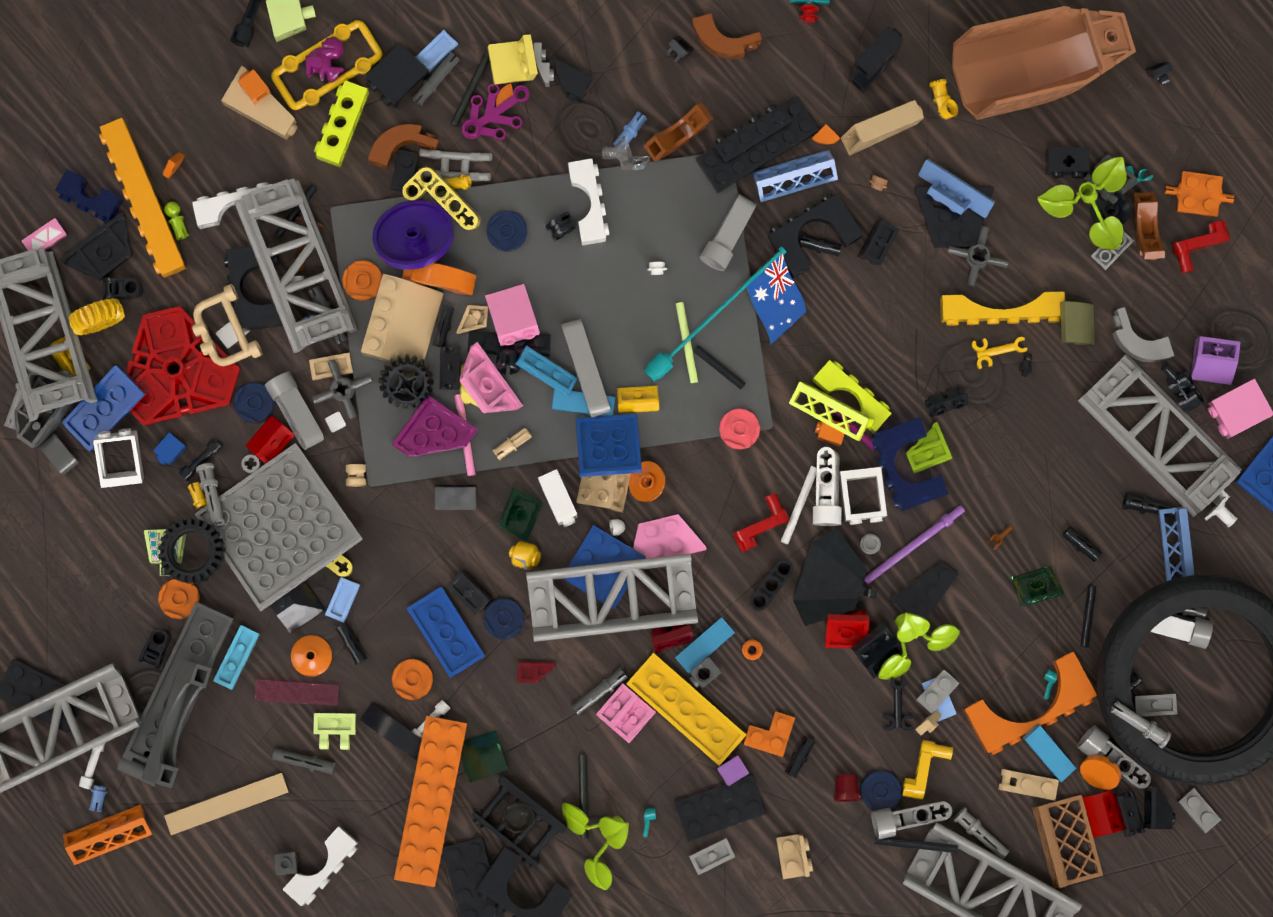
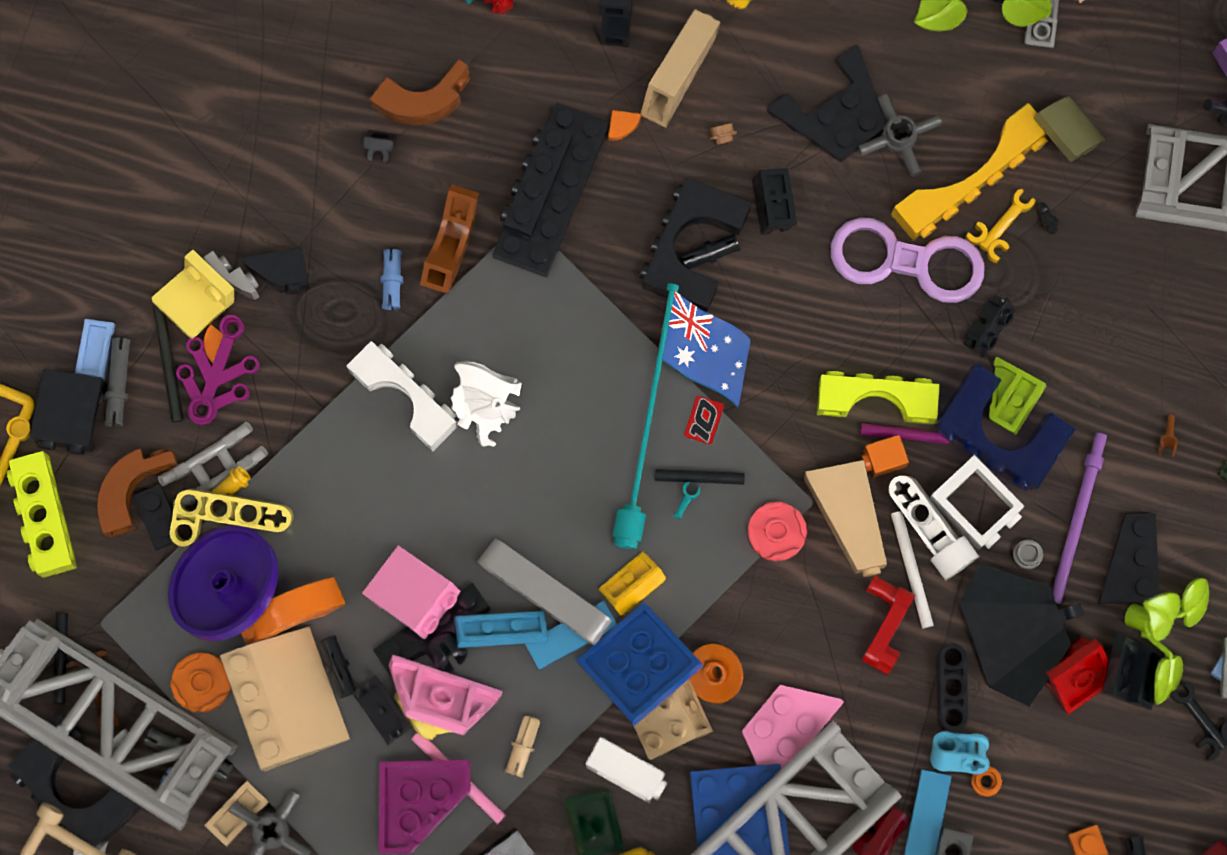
camera: 30 degrees left, 5 degrees down
(412, 376) = (337, 776): black gear -> none
(473, 319) = (368, 631): tan piece -> none
(506, 231) = (331, 499): dark blue tile -> none
(561, 226) = (392, 446): black wheel -> none
(616, 527) = (719, 754): white hinge -> none
(623, 153) = (402, 310): clear bracket -> none
(630, 236) = (483, 399): none -> white helmet
(656, 268) = (540, 414): white plate -> none
(687, 347) = (630, 466): yellowish green bar -> none
(702, 374) = (685, 501): none -> teal hand
(718, 251) = (599, 342): light grey beam -> none
(745, 337) = (704, 420): none -> sticker
(747, 622) = (957, 752): none -> medium azure piece
(788, 447) = (849, 511): none -> tan slope
(790, 170) = (613, 188): medium blue fence -> none
(835, 404) = (865, 421): neon yellow fence -> none
(929, 331) = (907, 260): none -> lavender bar
(954, 191) = (816, 80): medium blue bracket -> none
(1135, 346) = (1152, 107): light grey arch -> none

